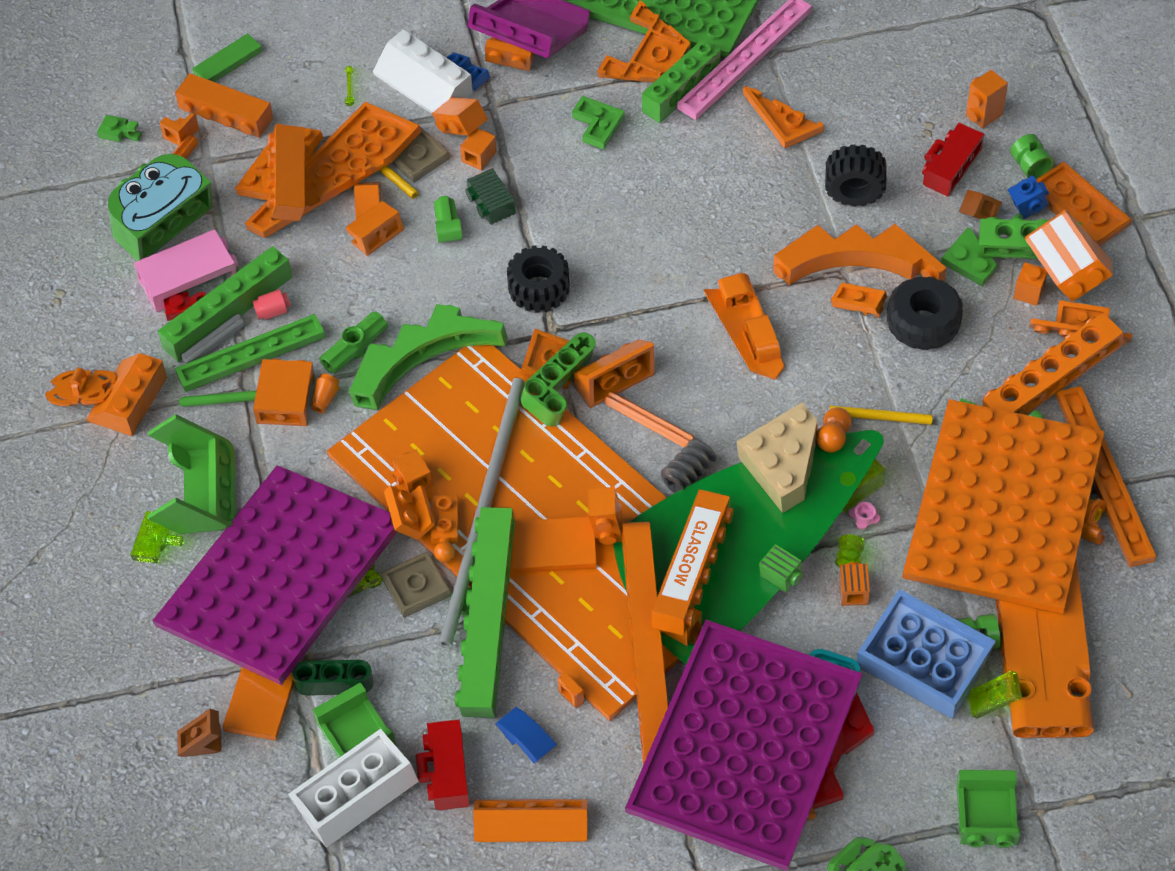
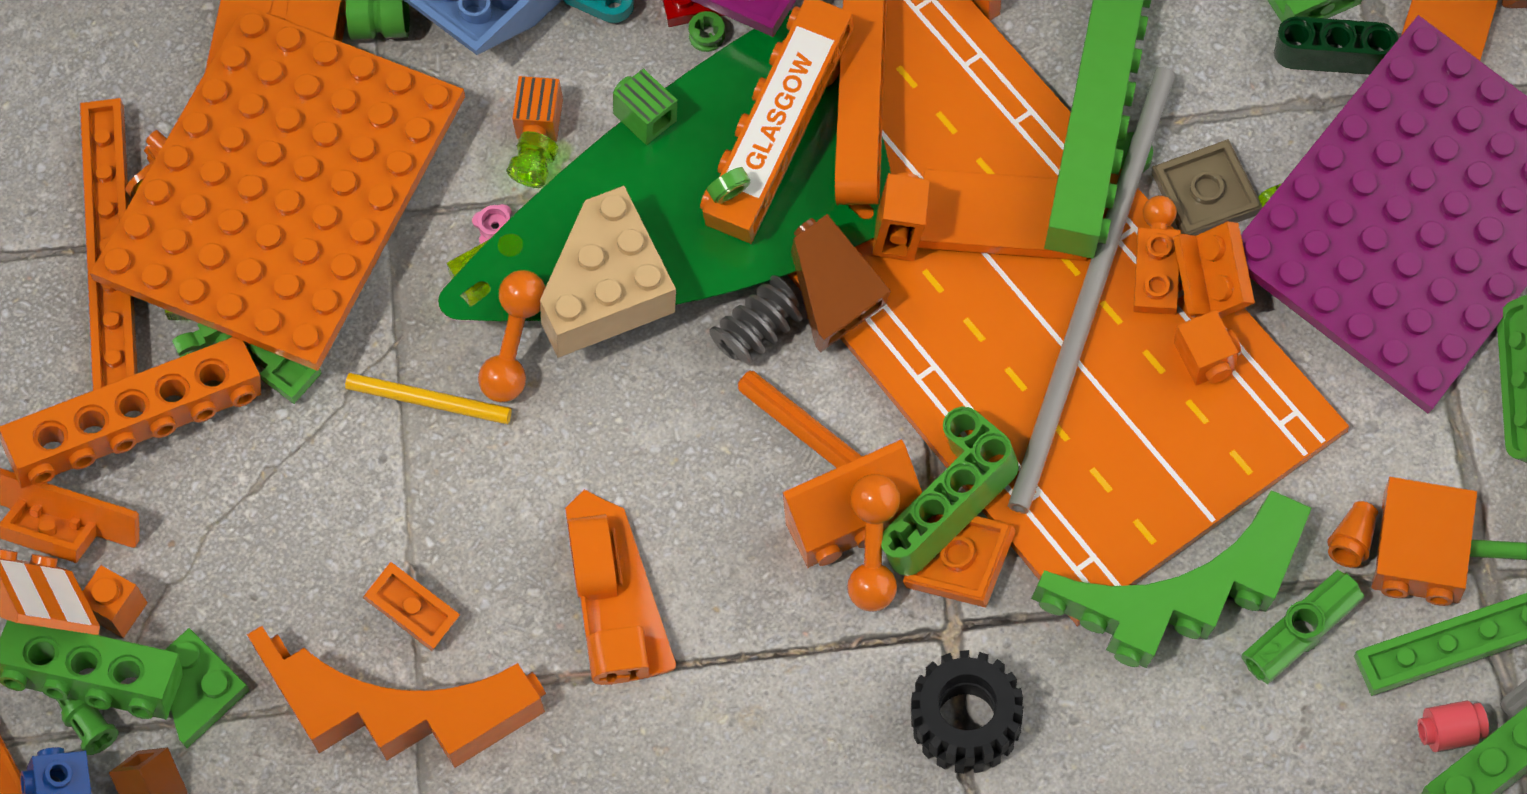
camera: 170 degrees left, 10 degrees up
(600, 346) = (875, 502): none -> orange piece
(642, 483) = (834, 281): none -> dark orange slope
(714, 499) = (729, 185): none -> bright green tile
(922, 330) = (300, 524): black tyre -> none

